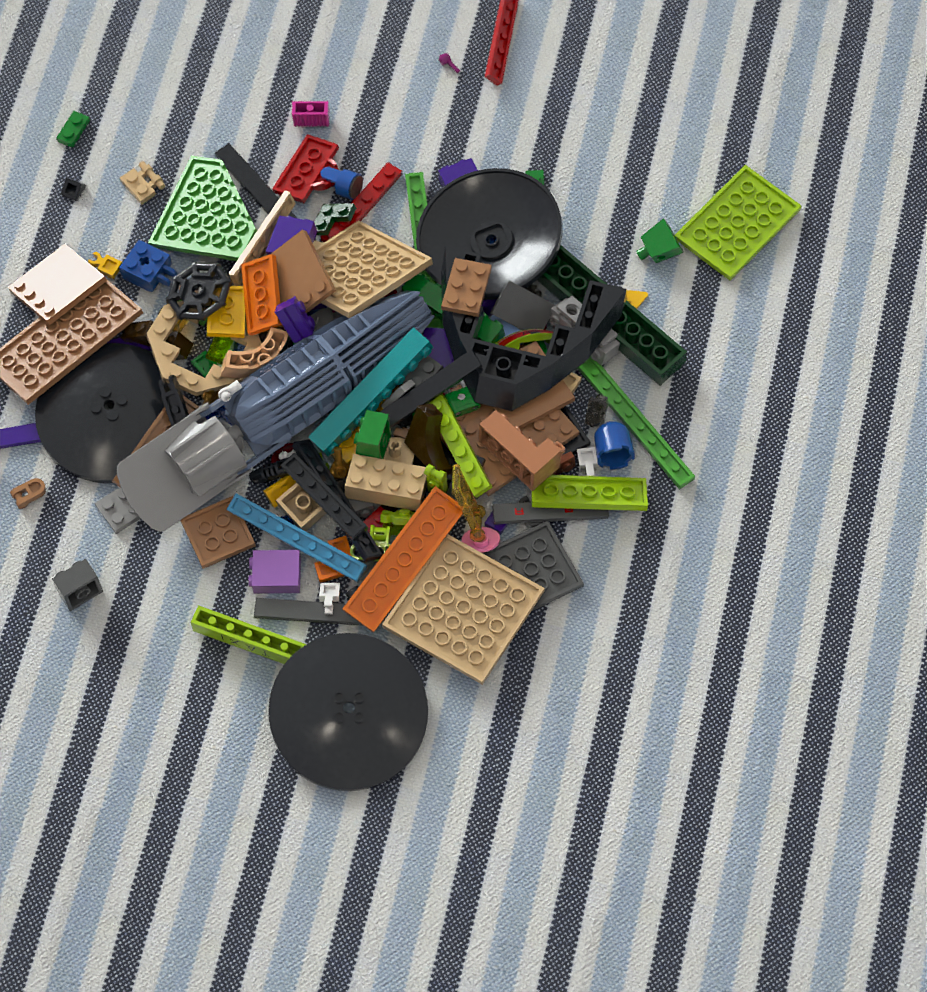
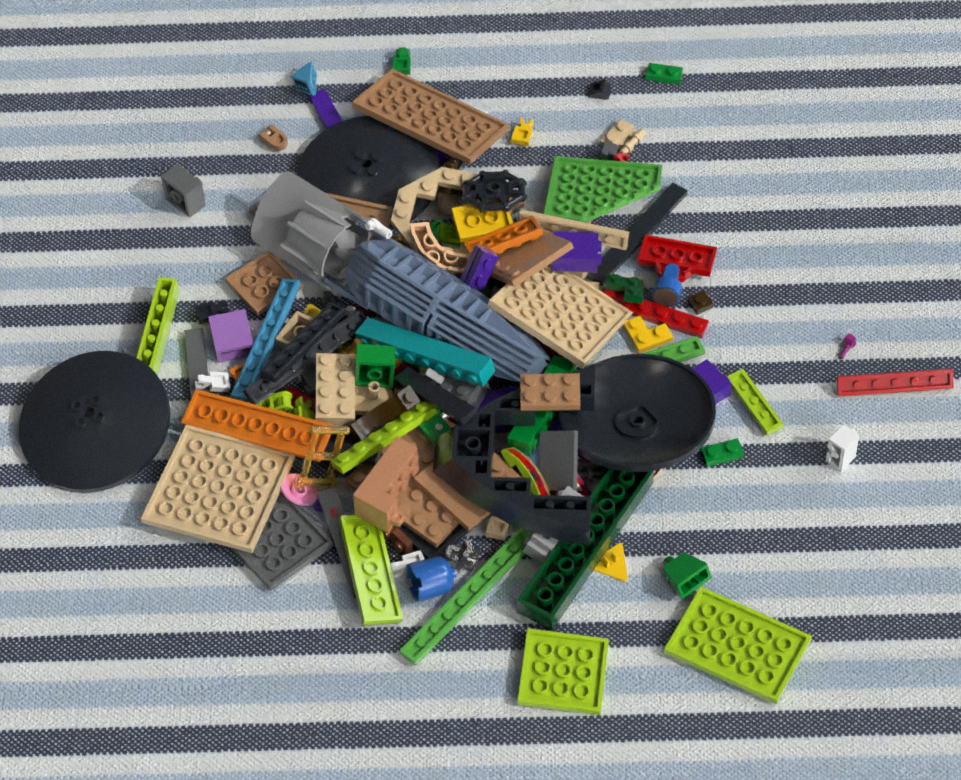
camera: 75 degrees right, 10 degrees down
(57, 284) = (488, 100): plate -> none
(147, 266) = (528, 159): blue hinge -> none
(160, 195) = (609, 152): none -> black piece
(173, 400) = (379, 203): black hinge -> none
(238, 588) = (209, 309): none -> black plate
(310, 113) = (739, 242): dark pink brick -> none
(363, 164) = (700, 302): none -> dark brown plate
(390, 218) = (644, 338): none -> yellow plate
(436, 478) = (339, 418): lime plate -> none
(491, 147) = (755, 402): none -> lime plate
(565, 90) = (842, 447): none -> white brick
(730, 361) = (563, 671): none -> lime plate

